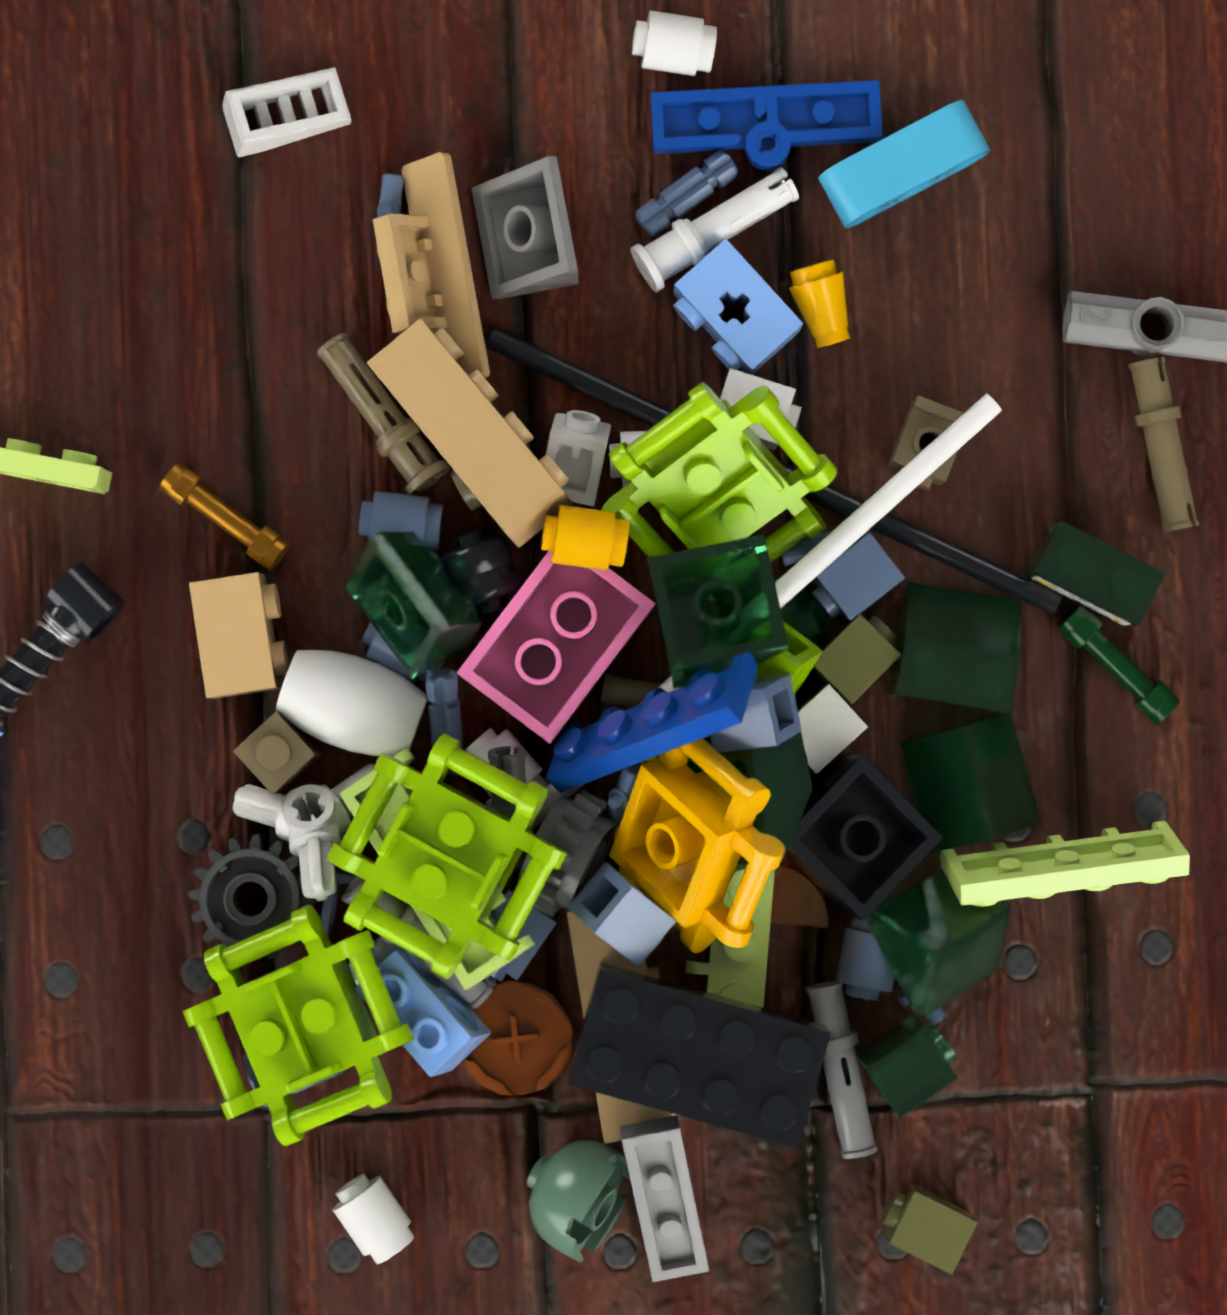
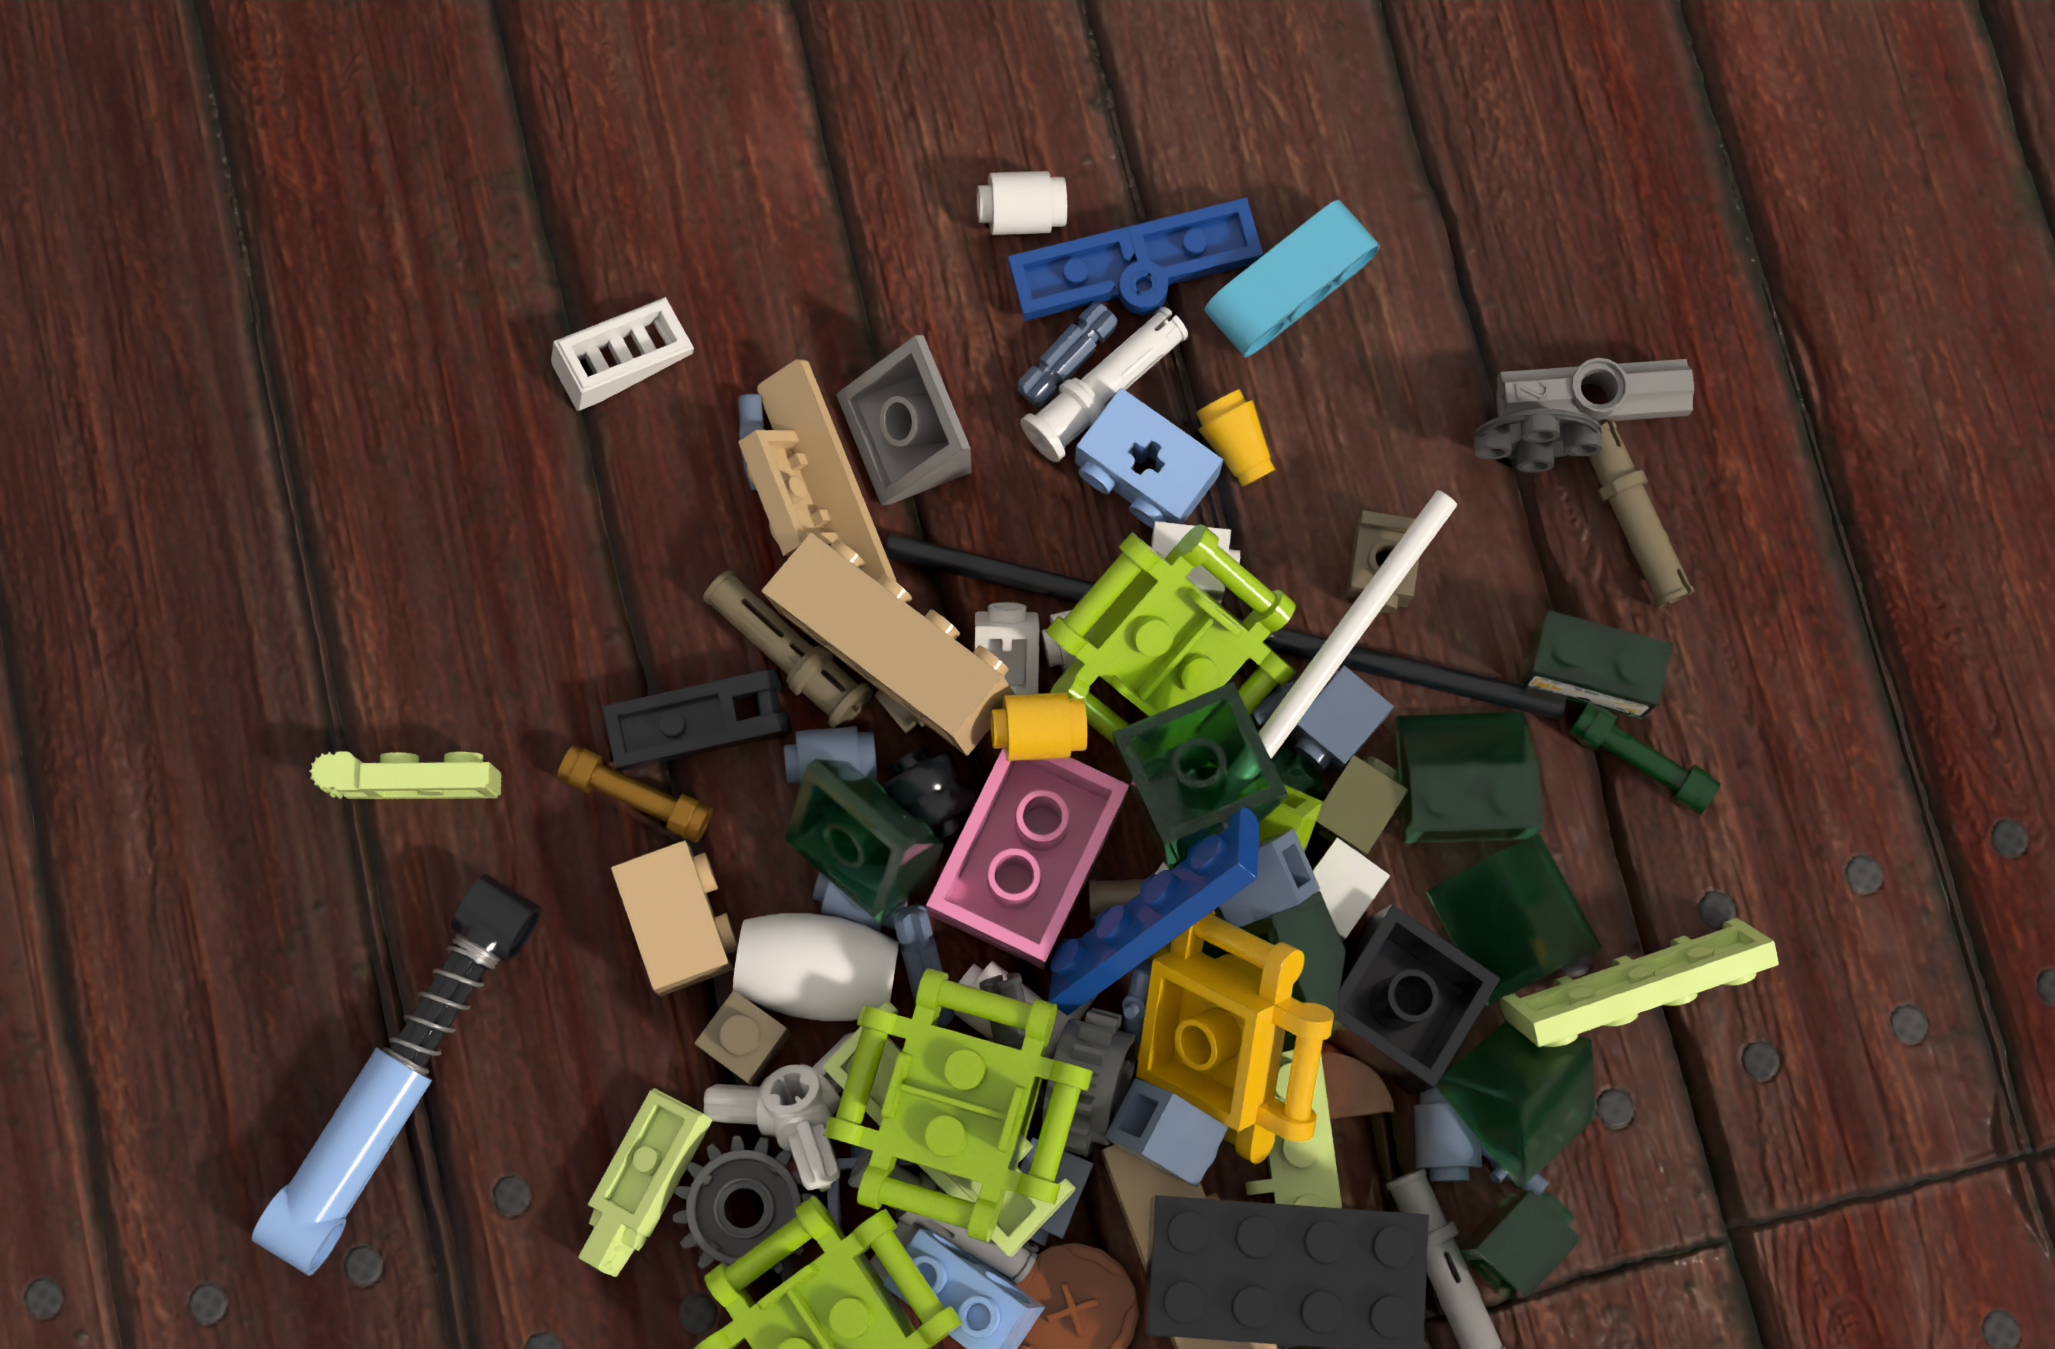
camera: 10 degrees left, 10 degrees down
(169, 853) = (641, 1179): none -> yellowish green hinge
(288, 462) = (695, 720): none -> black plate
(1090, 360) = (1537, 437): none -> dark grey dish

